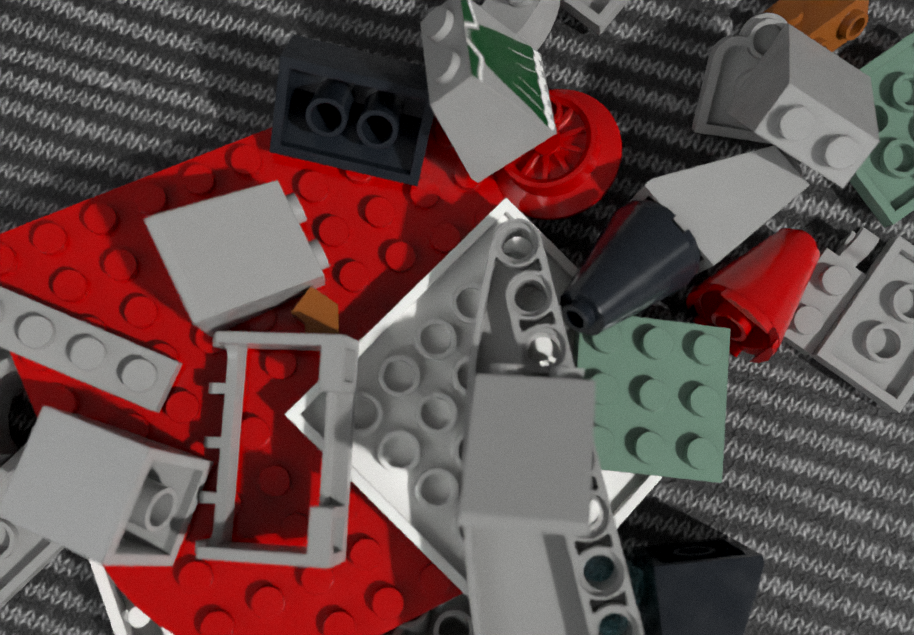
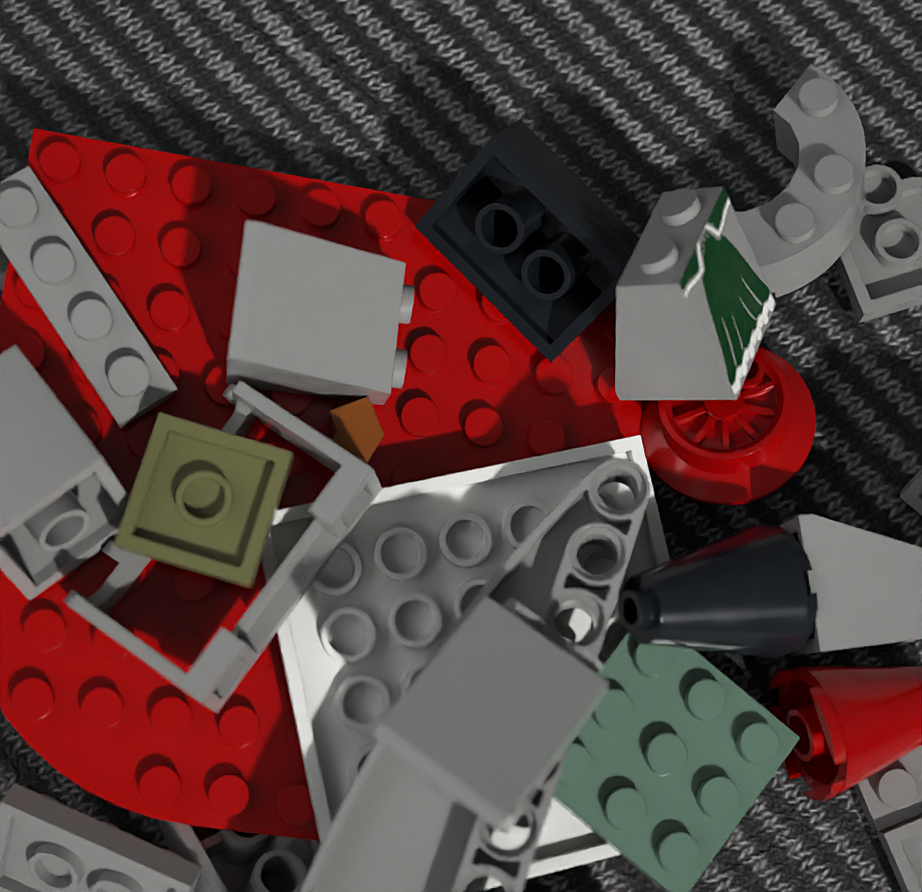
camera: 25 degrees right, 5 degrees down
(244, 427) = (204, 500): none -> olive plate

